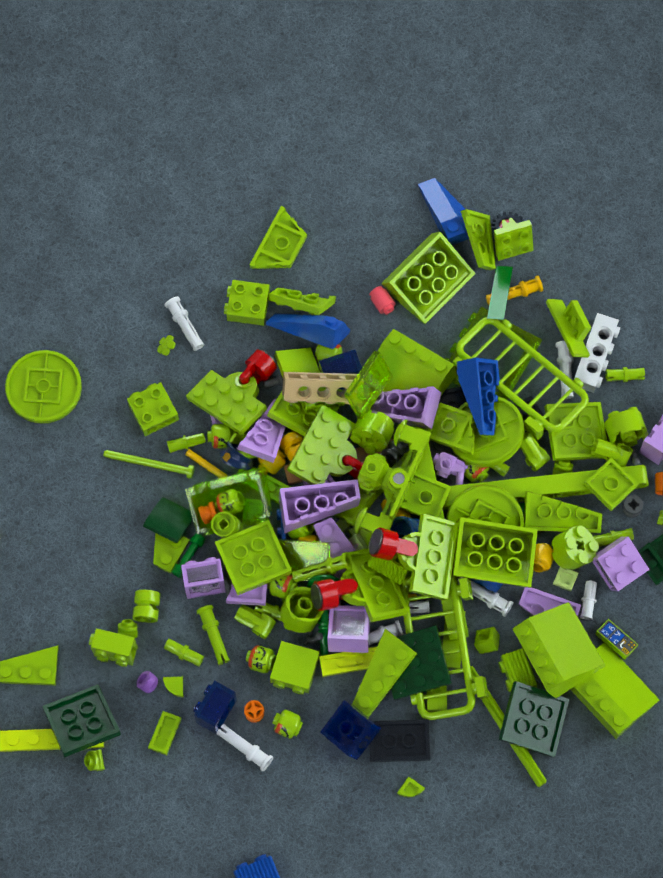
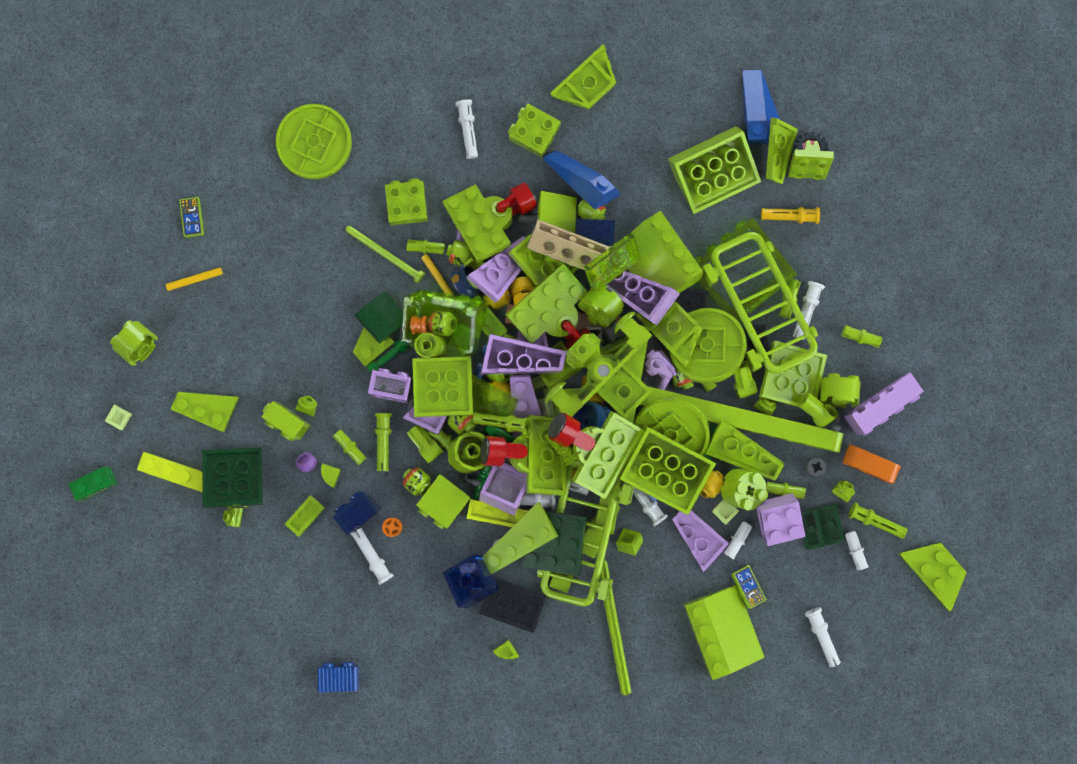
camera: 20 degrees right, 15 degrees up
(146, 606) = (330, 391): lime wheel -> none
(166, 345) = (442, 143): lime plant -> none
(287, 724) = (417, 550): lime head -> none
(310, 303) = (590, 153): lime wing -> none
(382, 300) = (662, 176): coral brick -> none
(479, 381) = (717, 300): blue wedge -> none
(500, 292) = (776, 211): sticker -> none
(516, 668) = (645, 583): lime brick -> none
(533, 719) = (641, 635): plate -> none
(546, 376) = (794, 288): none -> lime pin
(559, 648) = (690, 581): lime slope -> none
(571, 324) = (831, 270): lime bracket -> none
(602, 326) = (859, 280): white brick -> none
(611, 484) = (803, 441): lime tile -> none

